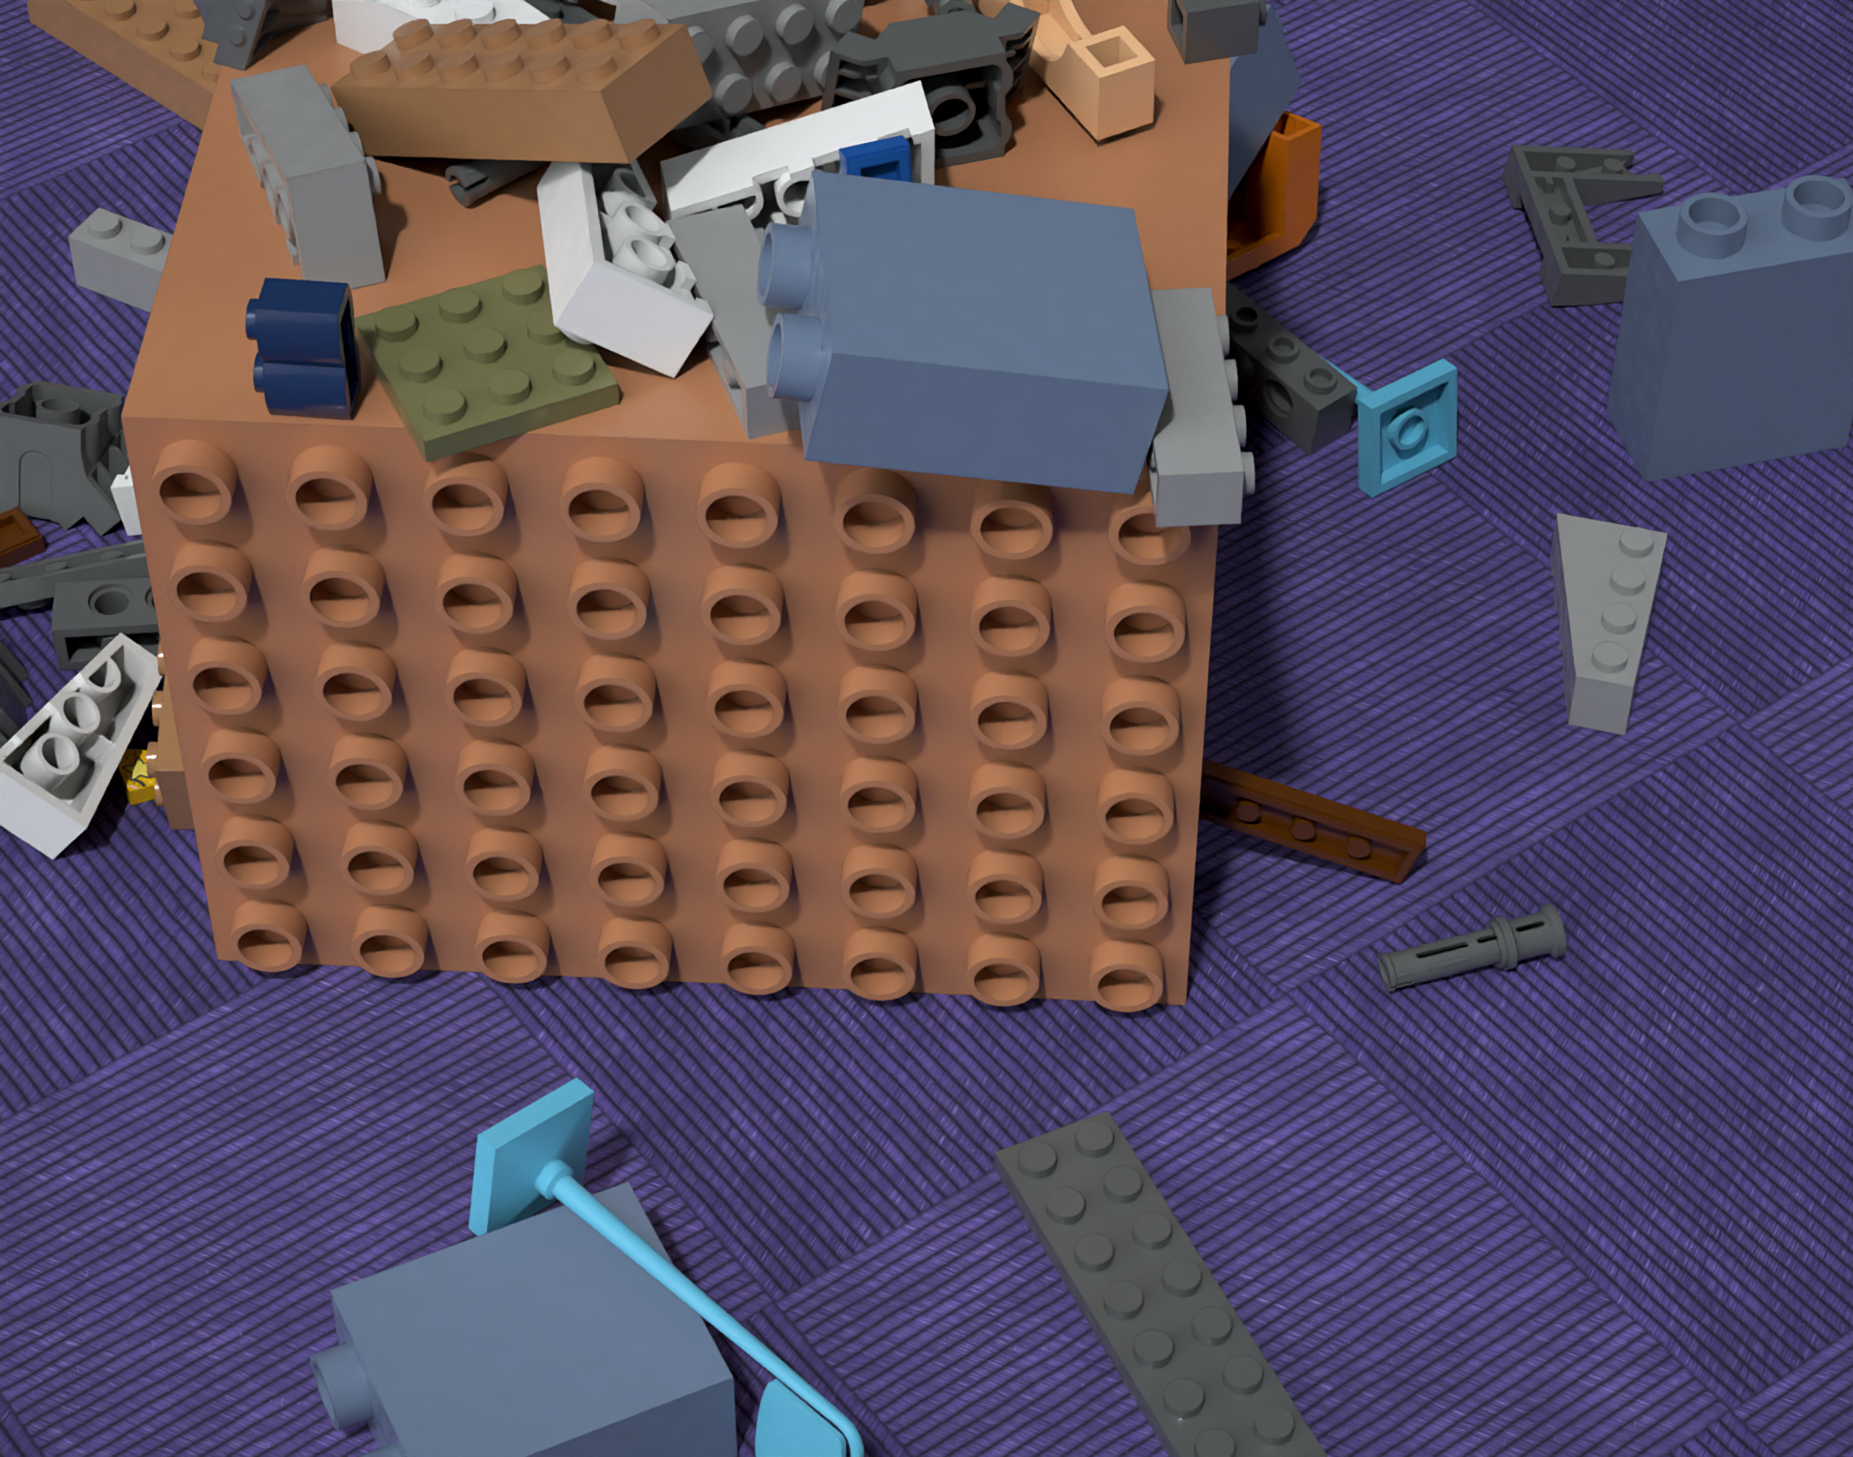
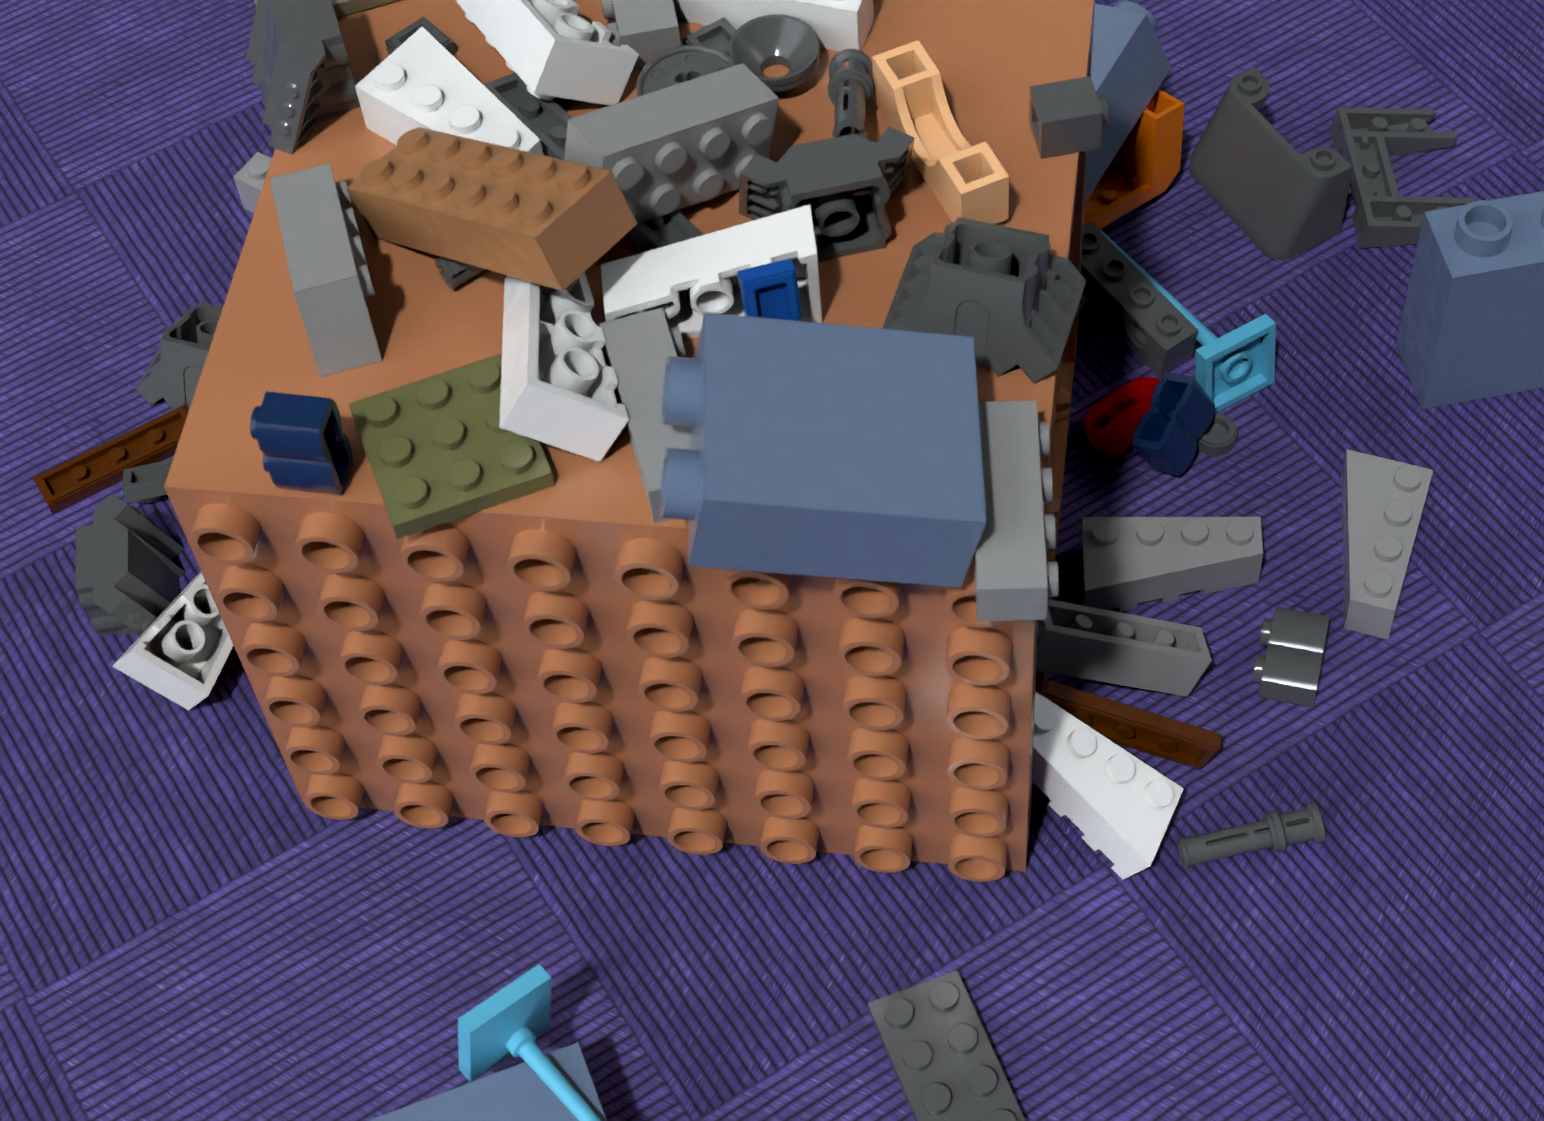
camera: 10 degrees right, 10 degrees up
(1181, 190) = (993, 288): none -> dark grey slope
(1281, 891) = (1101, 788): none -> white wedge
(1283, 489) = (1115, 417): none -> red piece
(1300, 737) = (1121, 648): none -> light grey brick
(1334, 493) = (1171, 427): none -> dark blue brick
(1335, 645) = (1166, 557): none -> light grey wedge
(1386, 513) = (1218, 437): none -> dark grey tile
(1428, 225) = (1262, 181): none -> dark grey windscreen
(1507, 750) = (1292, 657): none -> dark grey brick

